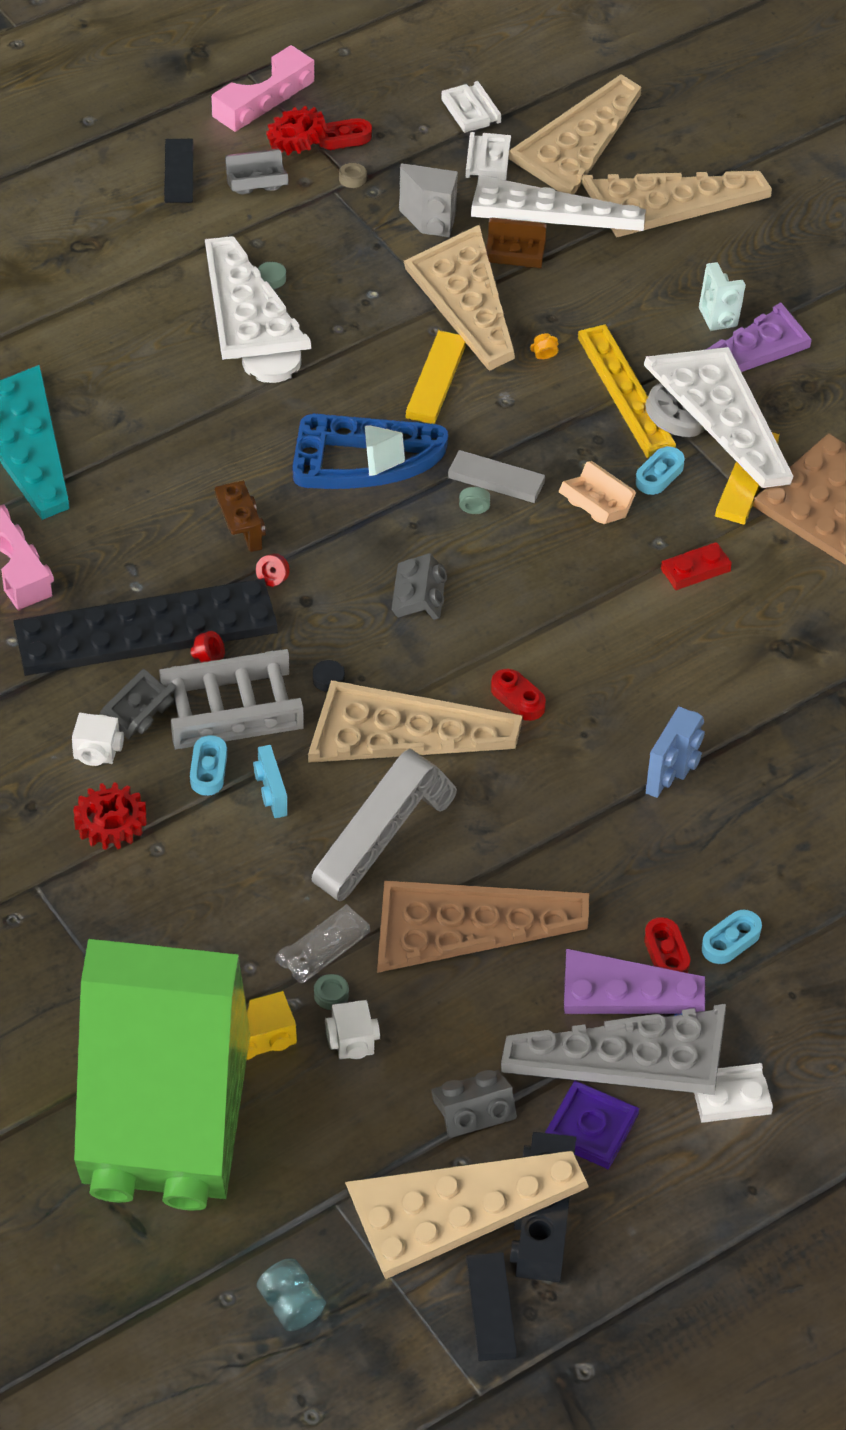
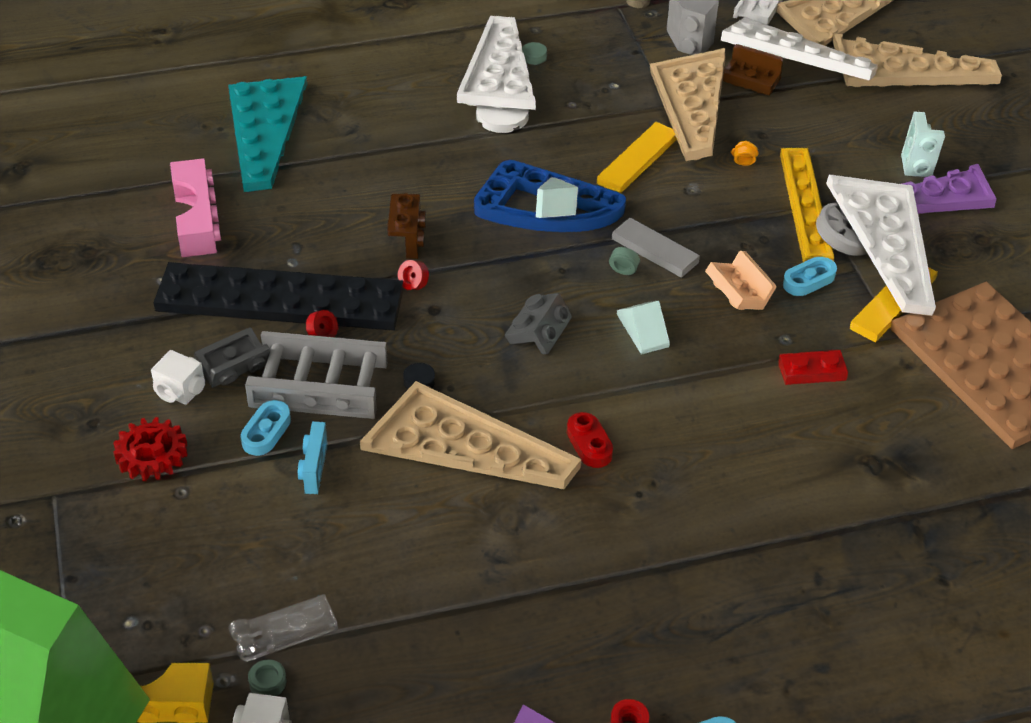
camera: 20 degrees right, 5 degrees down
(379, 820) = (391, 515): light grey beam -> none
(454, 920) = (421, 640): medium nougat wing -> none
(522, 564) = (645, 326): none -> light aqua slope
(675, 750) = (716, 531): medium blue plate -> none

